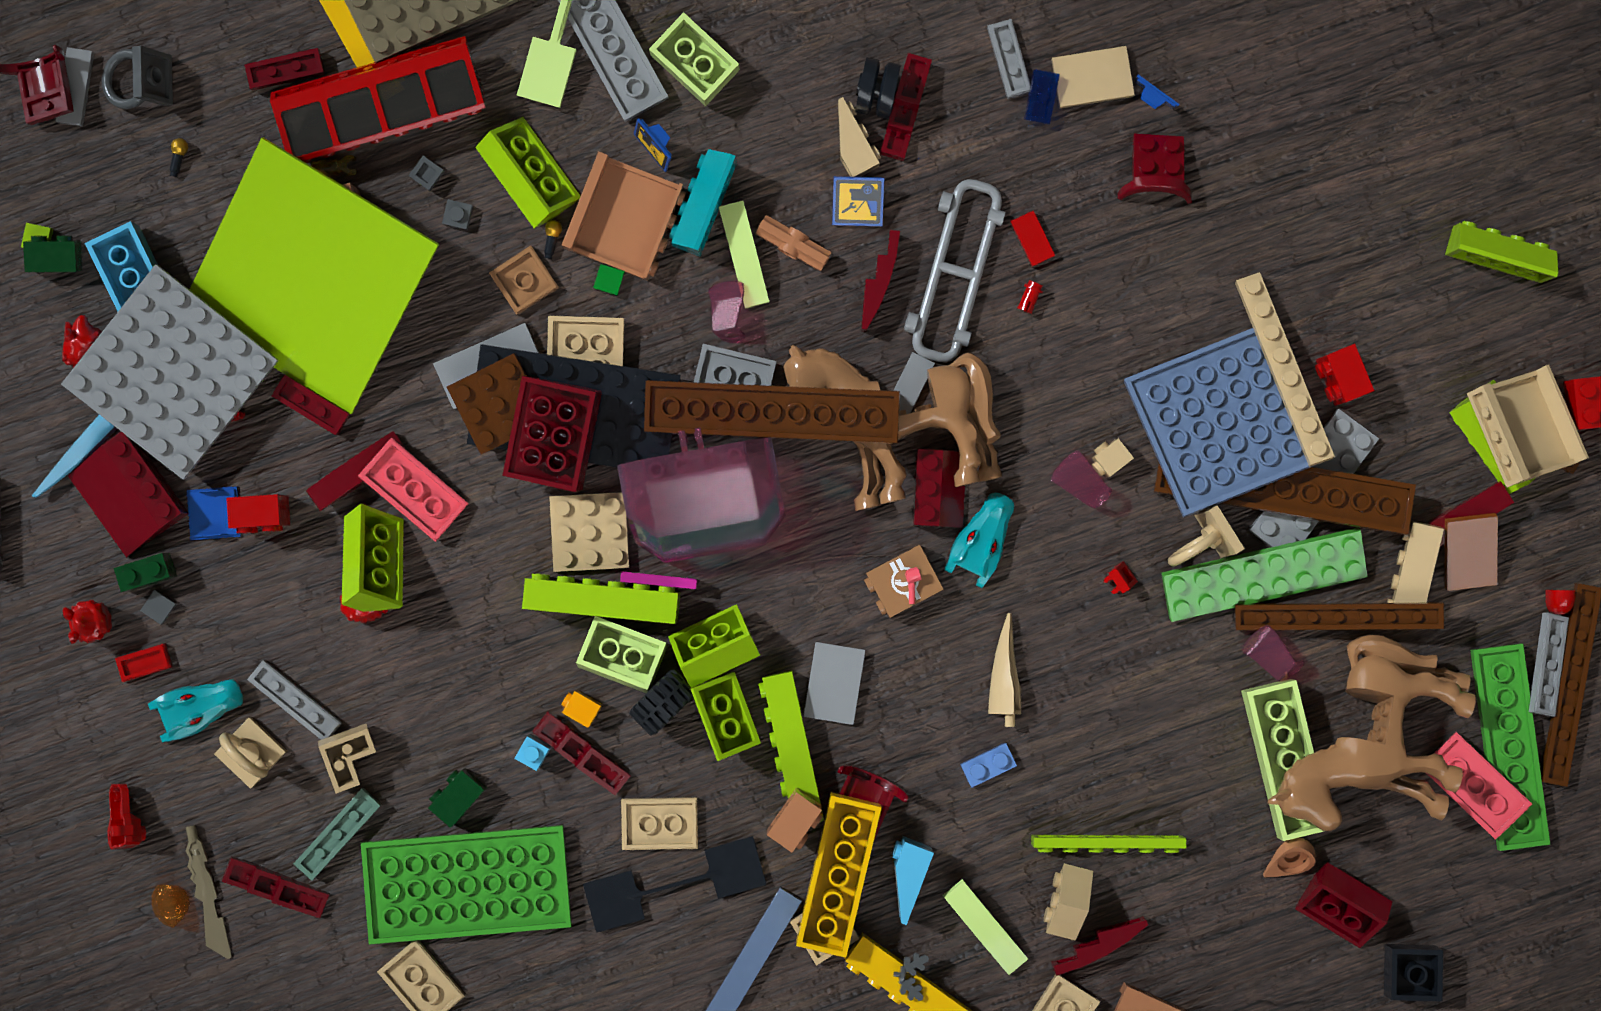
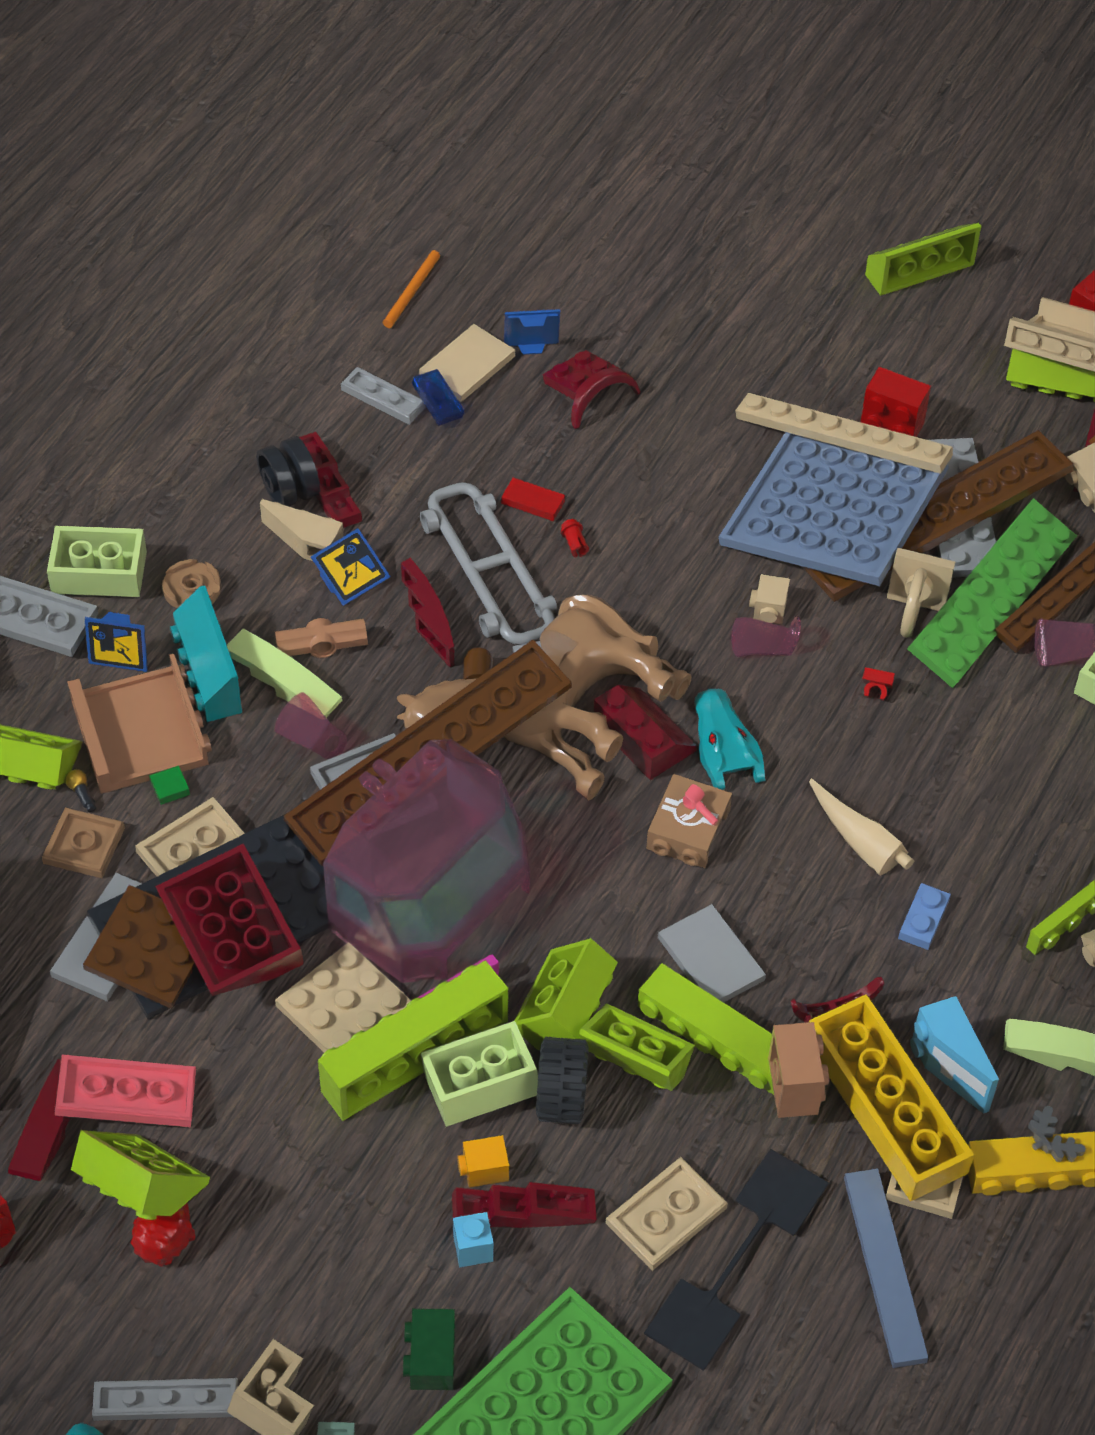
camera: 35 degrees left, 35 degrees down
(742, 113) = (190, 574): none -> medium nougat plate
(871, 355) = (477, 663): none -> reddish brown brick

